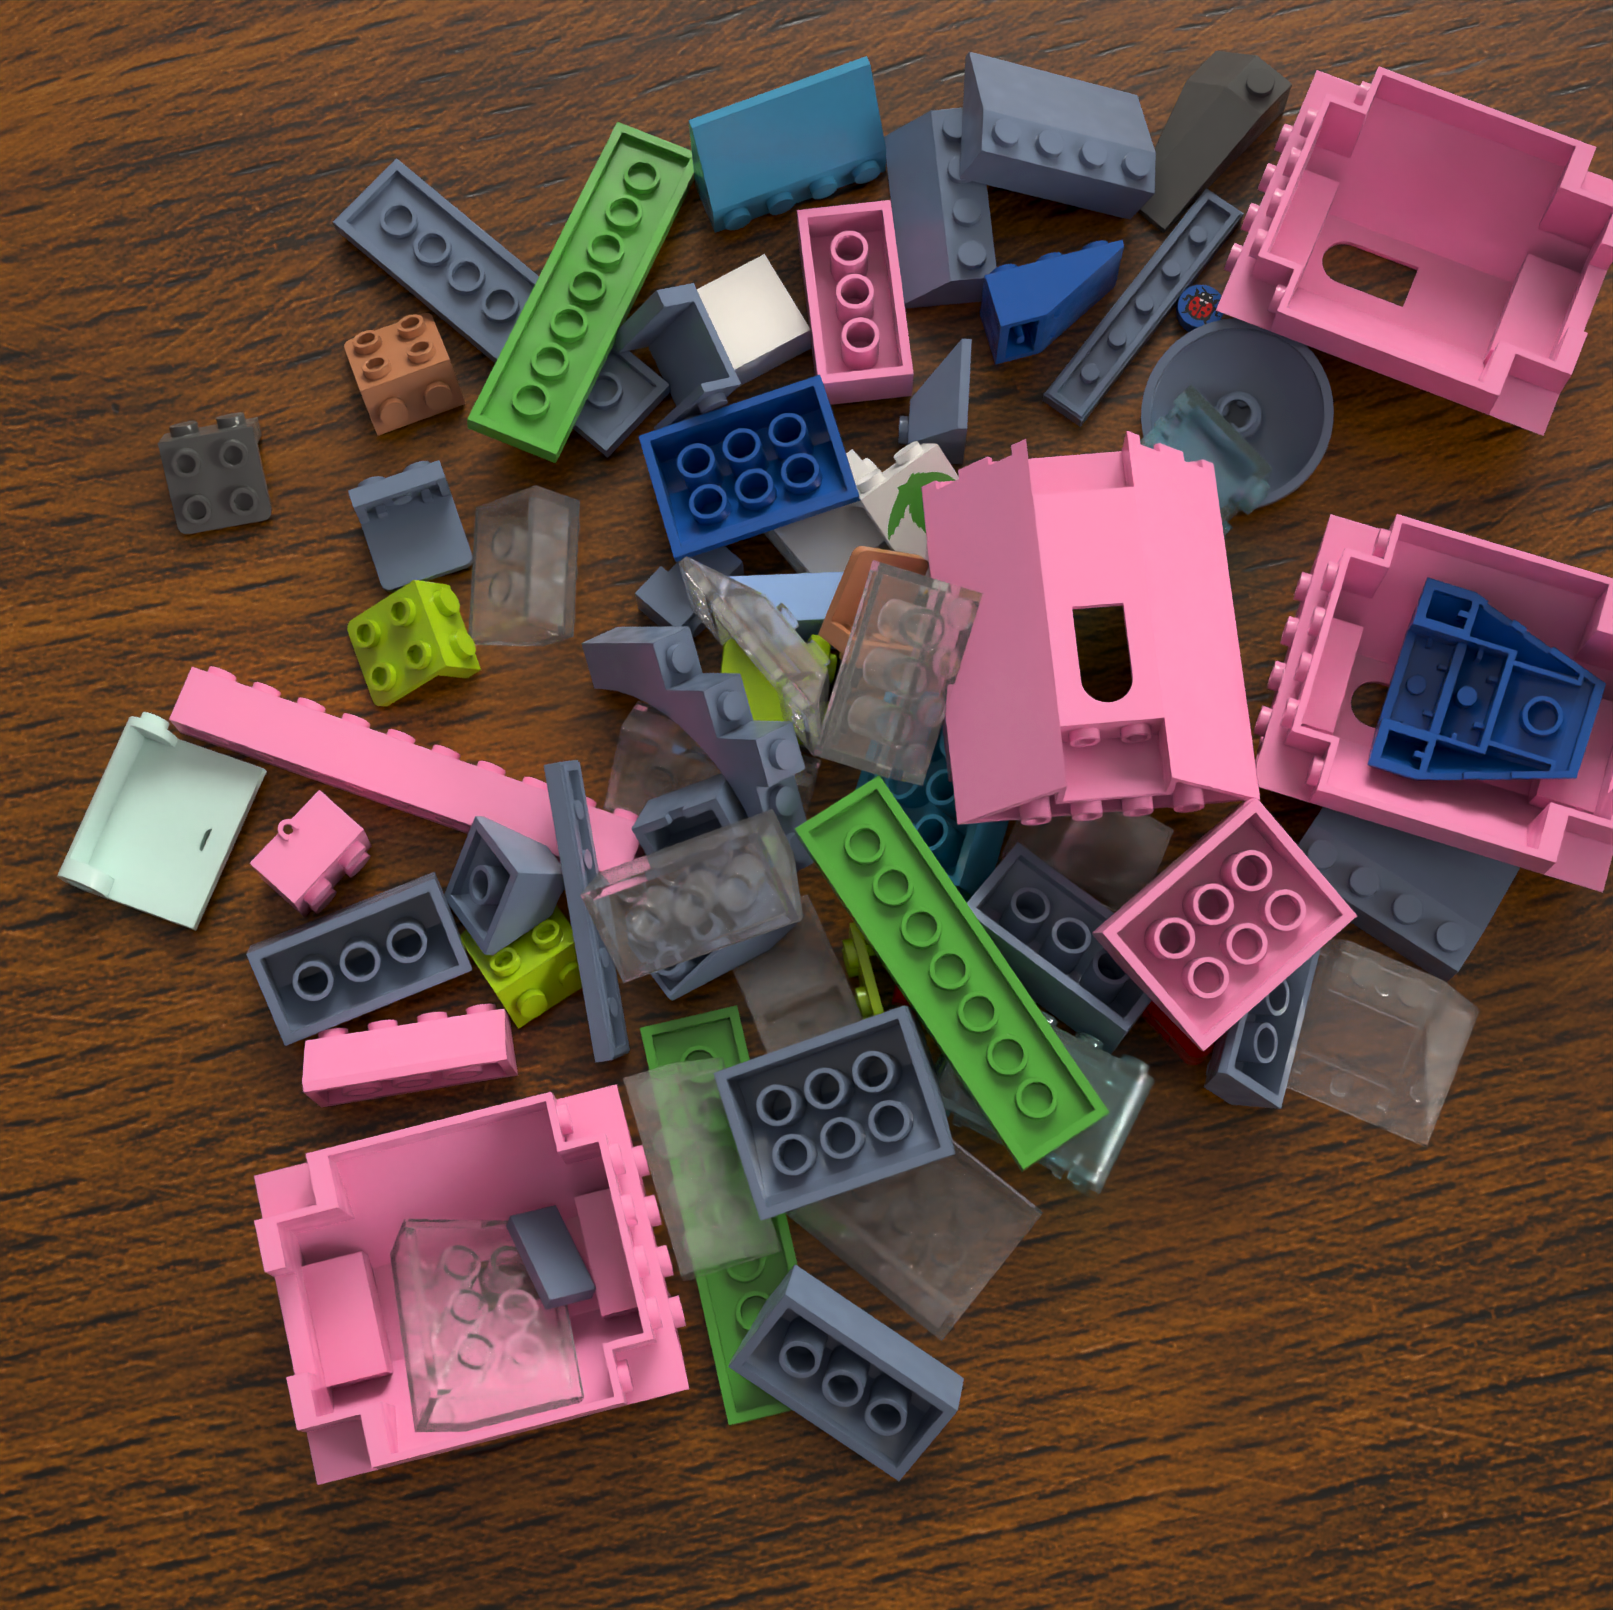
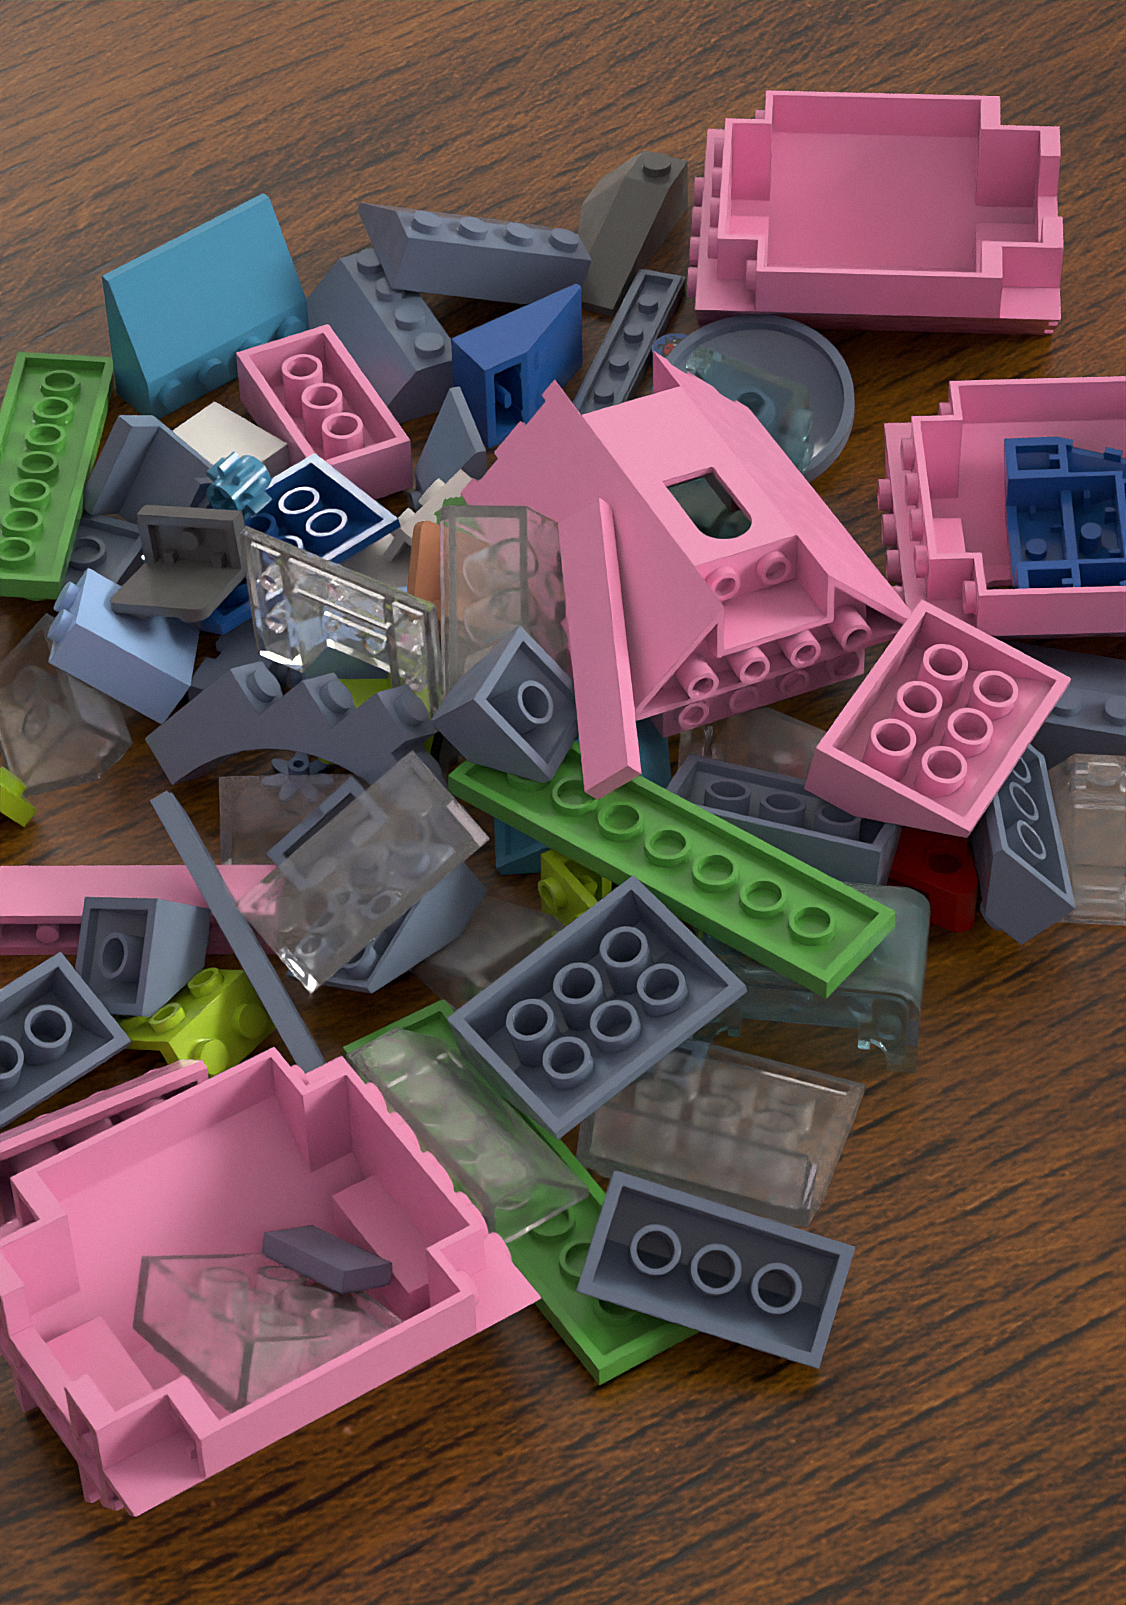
camera: 20 degrees left, 30 degrees down
(592, 537) = (126, 657): none -> light blue brick
(657, 495) = (188, 564): none -> dark grey bracket
(735, 408) = (239, 484): none -> dark azure gear
(868, 793) = (512, 710): none -> sand blue slope
(959, 753) = (599, 650): none -> bright pink tile

